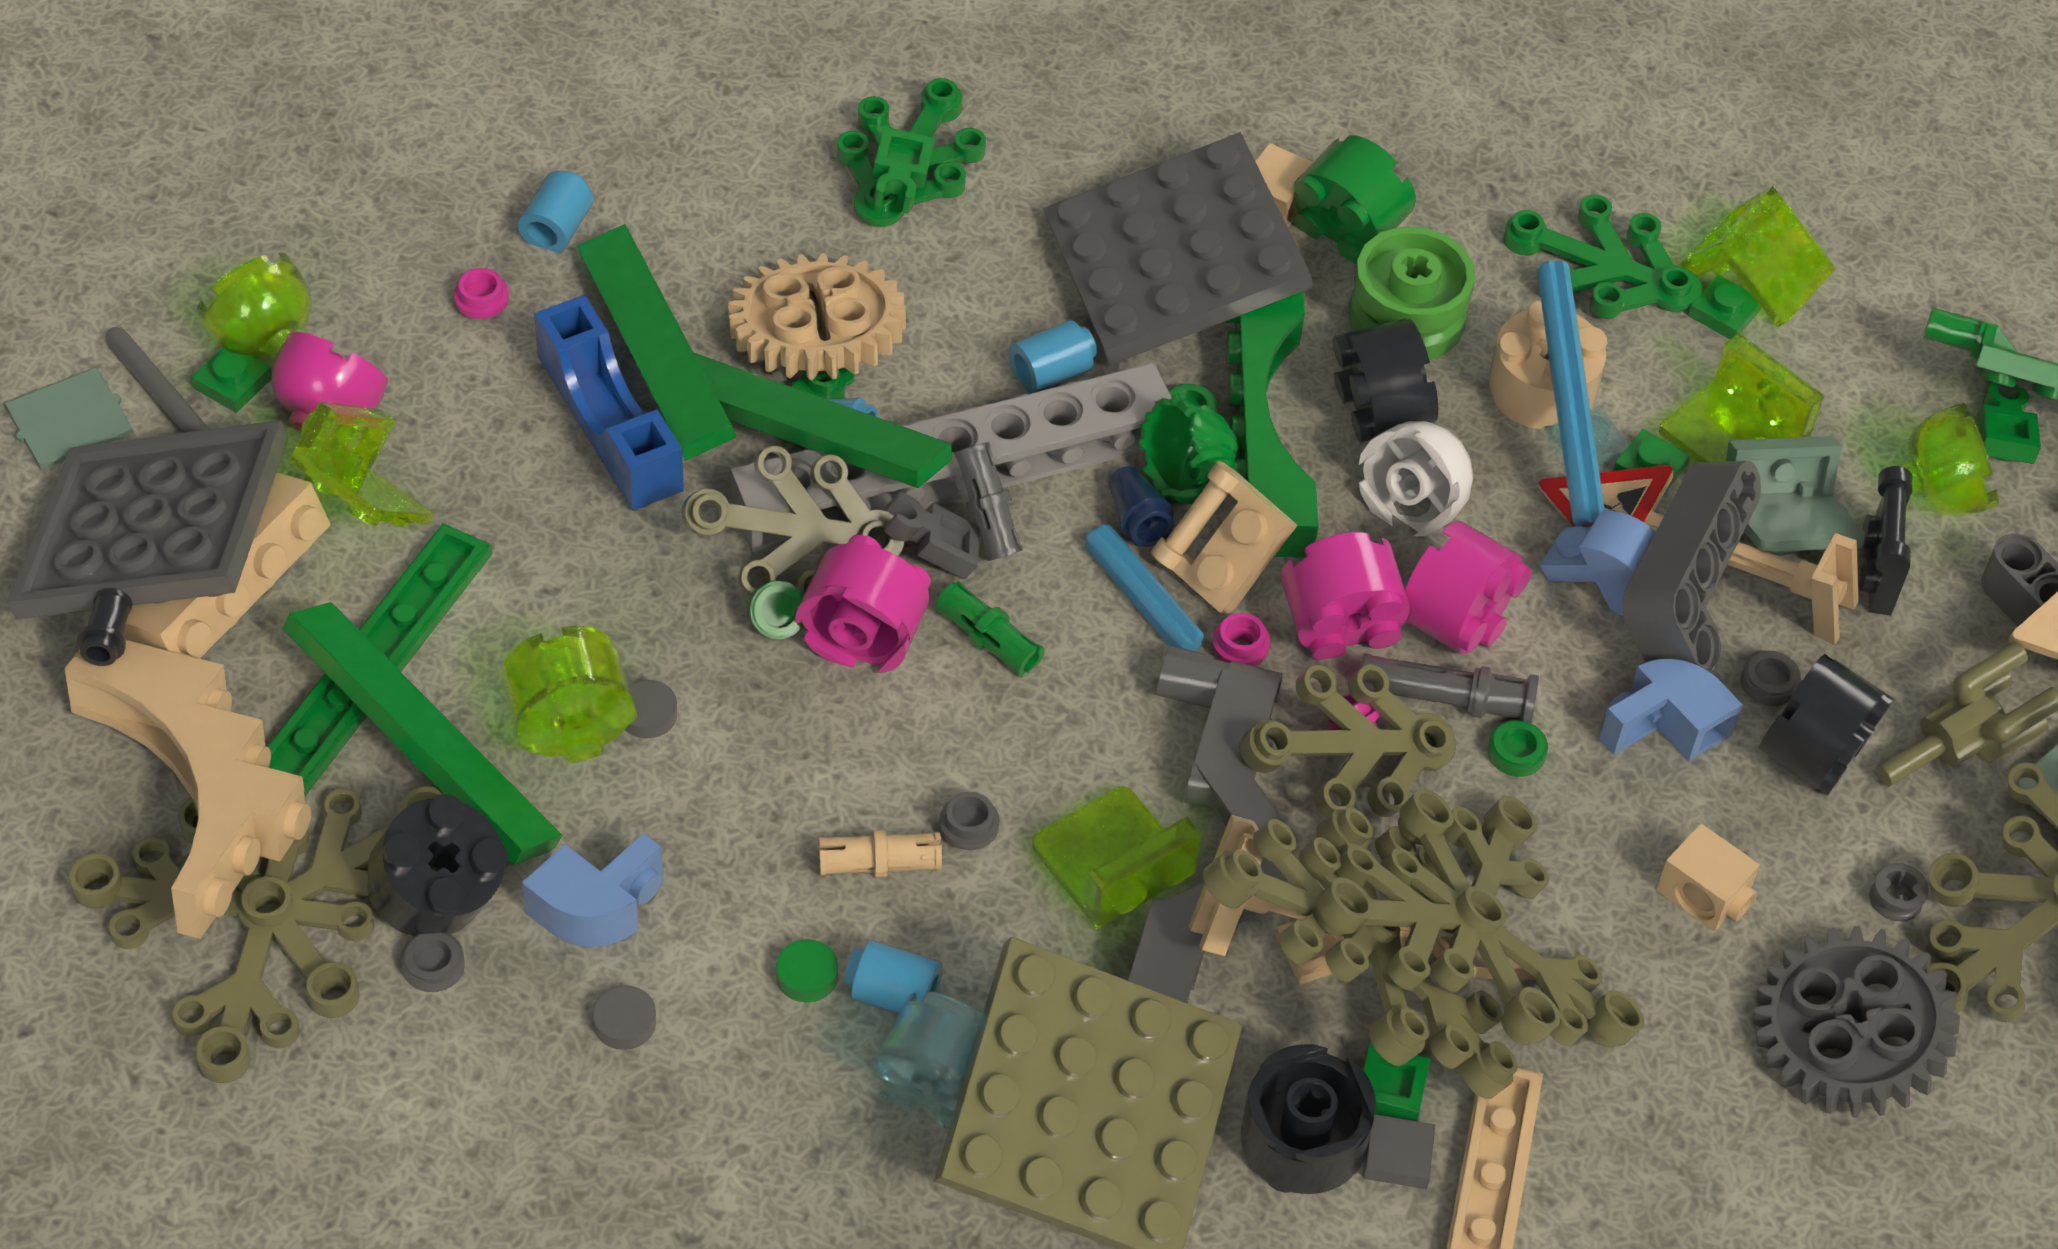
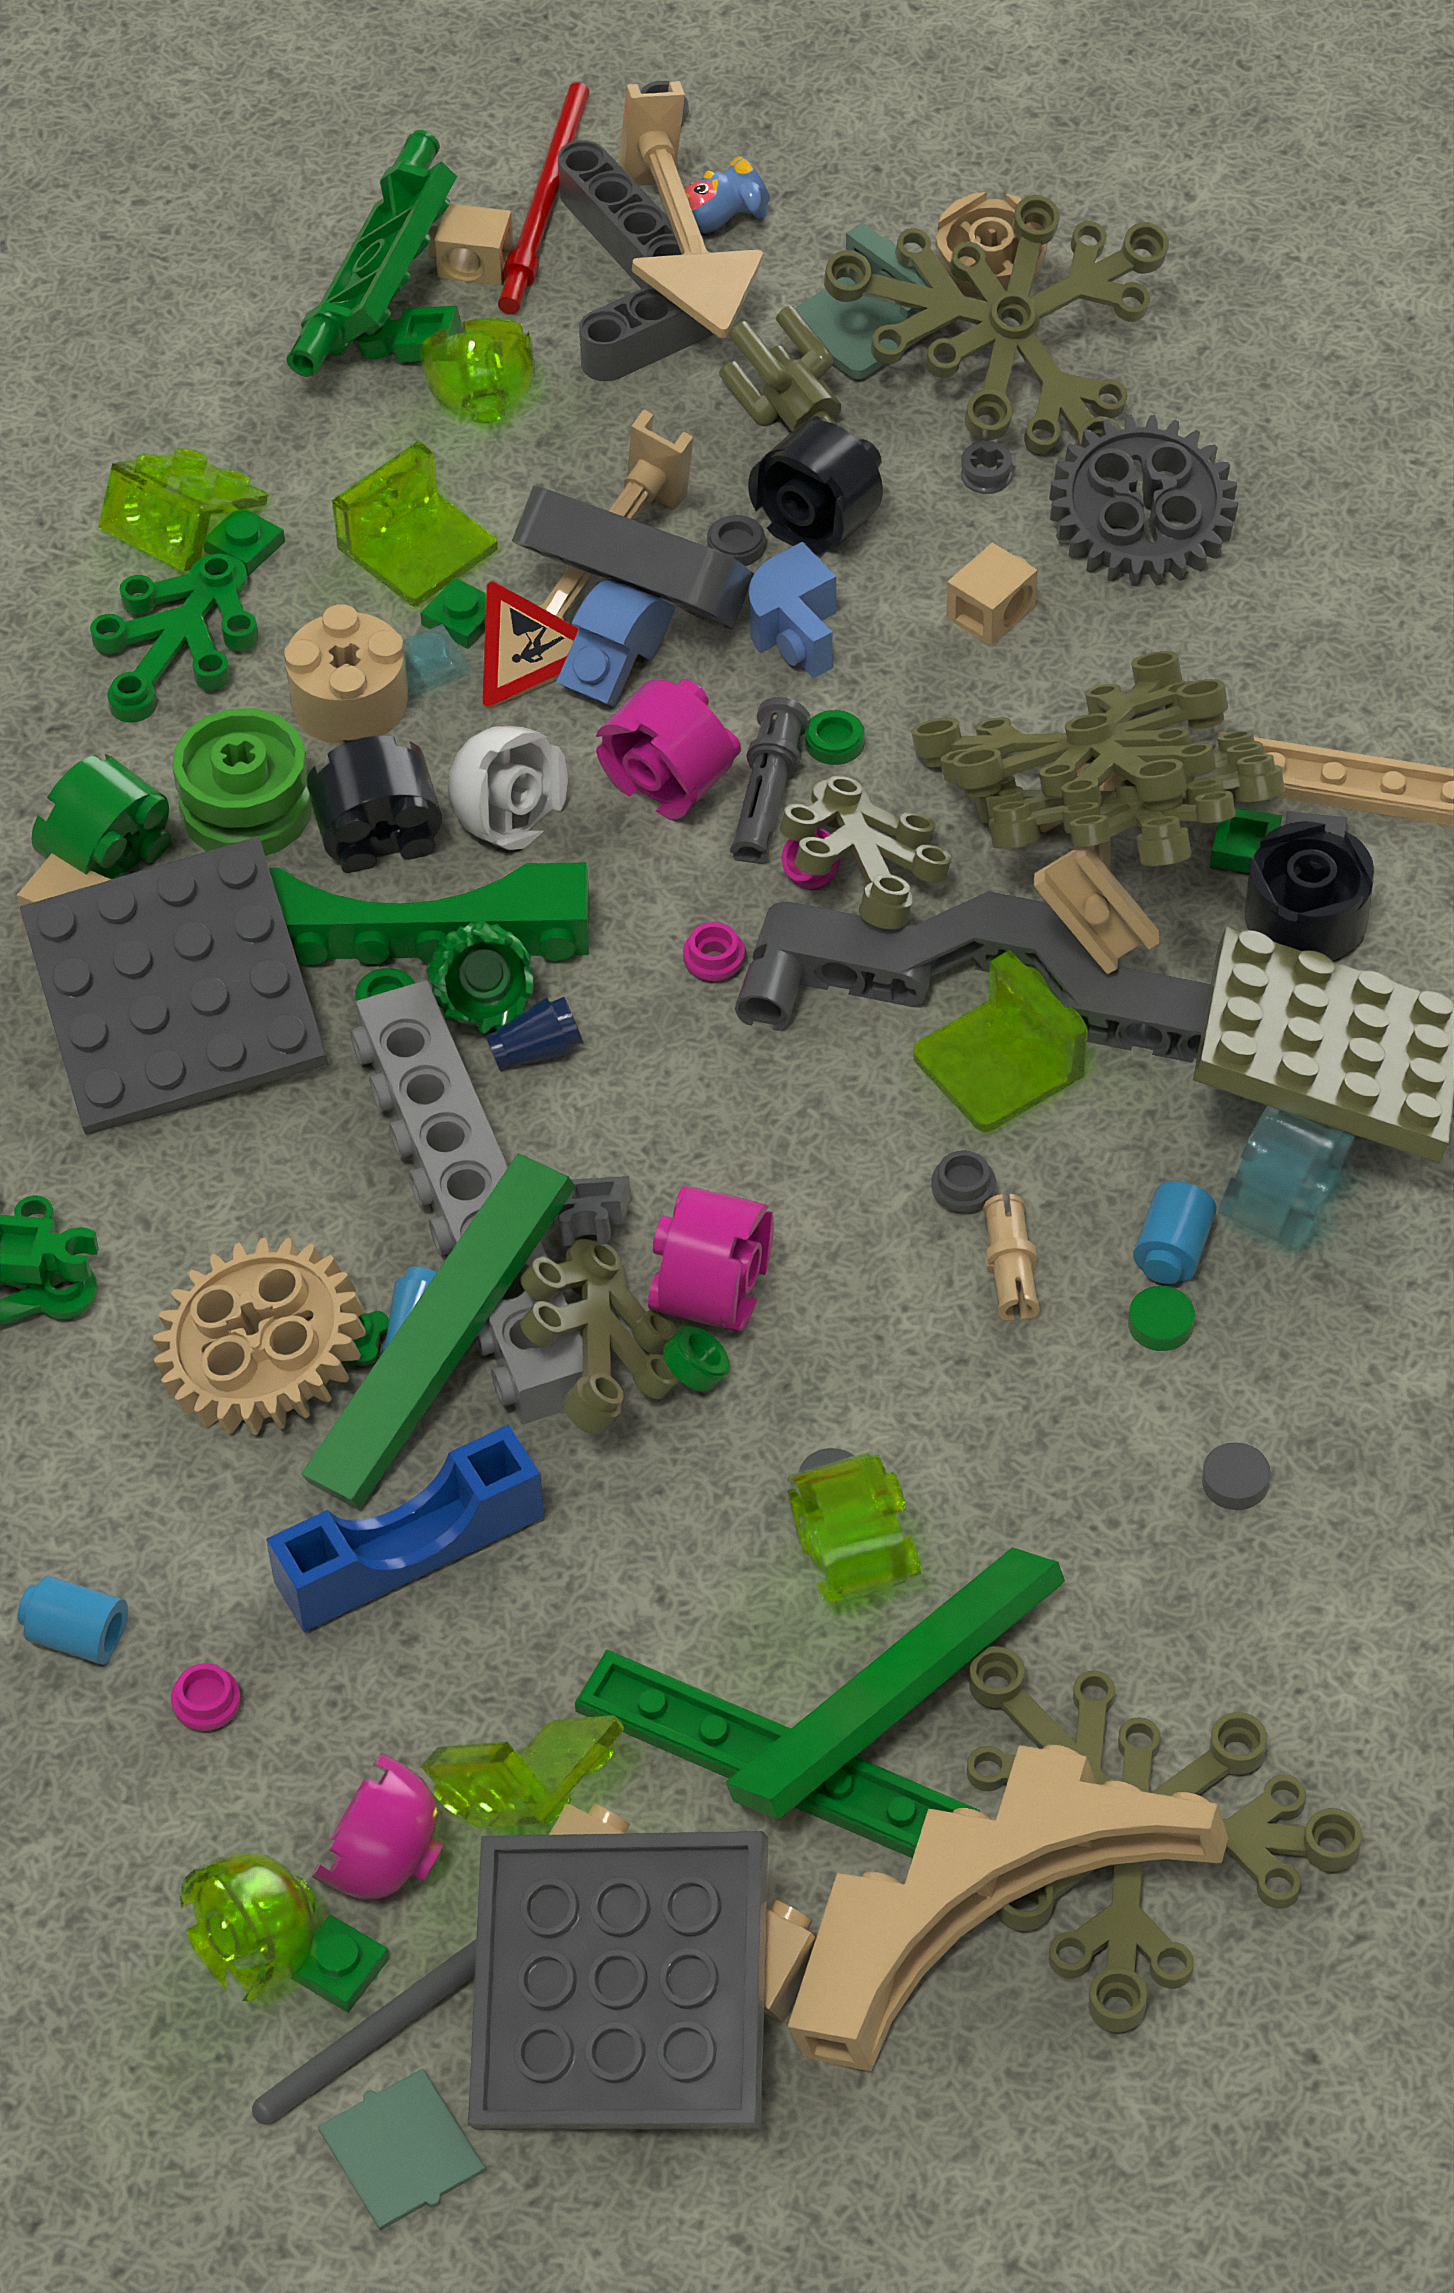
camera: 85 degrees left, 0 degrees up
(103, 637) = (805, 1989): black pin -> none
(433, 961) = (1183, 1659): dark grey tile -> none
(455, 841) = (1097, 1634): black brick -> none
(591, 904) = (1104, 1505): medium blue brick -> none
(656, 342) = (320, 1479): green tile -> none
(988, 501) = (581, 1156): dark grey pin -> none
(989, 628) = (711, 1165): green pin -> none
(1052, 356) = (321, 1112): dark azure brick -> none
(1143, 588) = (645, 1036): dark azure axle -> none
(1238, 547) = (614, 938): tan plate -> none
(1346, 595) = (678, 843): dark pink brick -> none
(1570, 392) = (421, 632): dark azure axle -> none
(1796, 494) = (502, 495): sand green bracket -> none
(1885, 536) = (582, 421): black plate -> none

